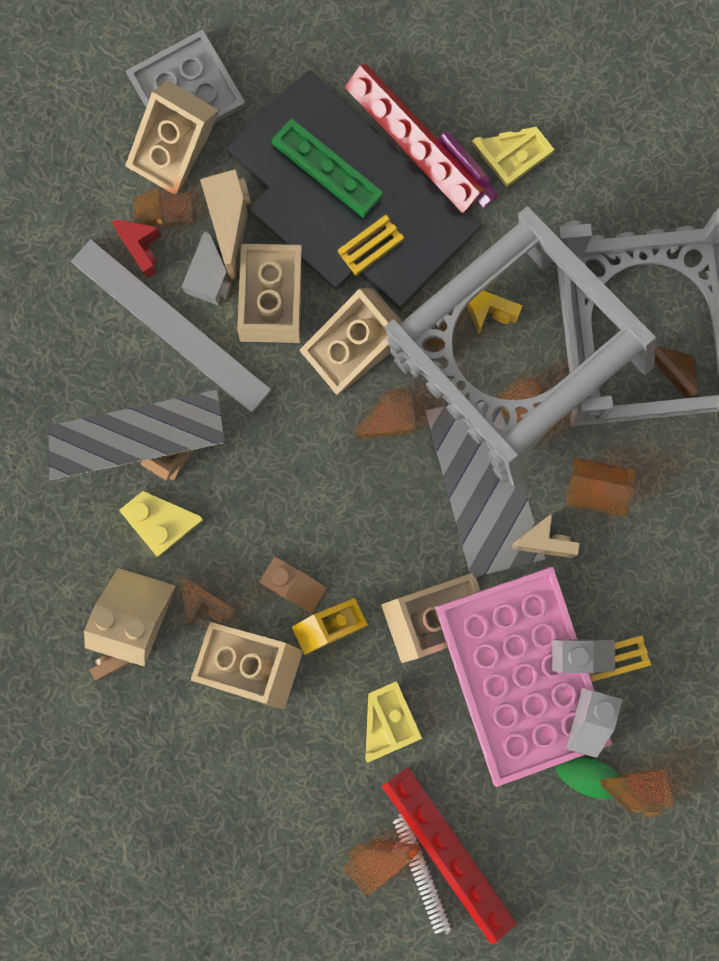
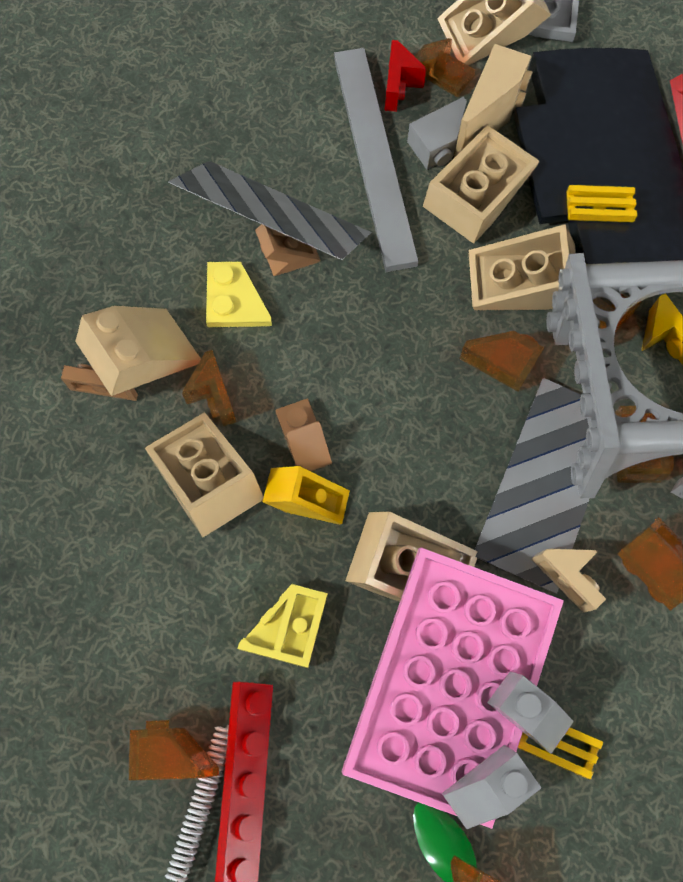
camera: 30 degrees right, 10 degrees down
(327, 168) = (610, 120): green plate -> none

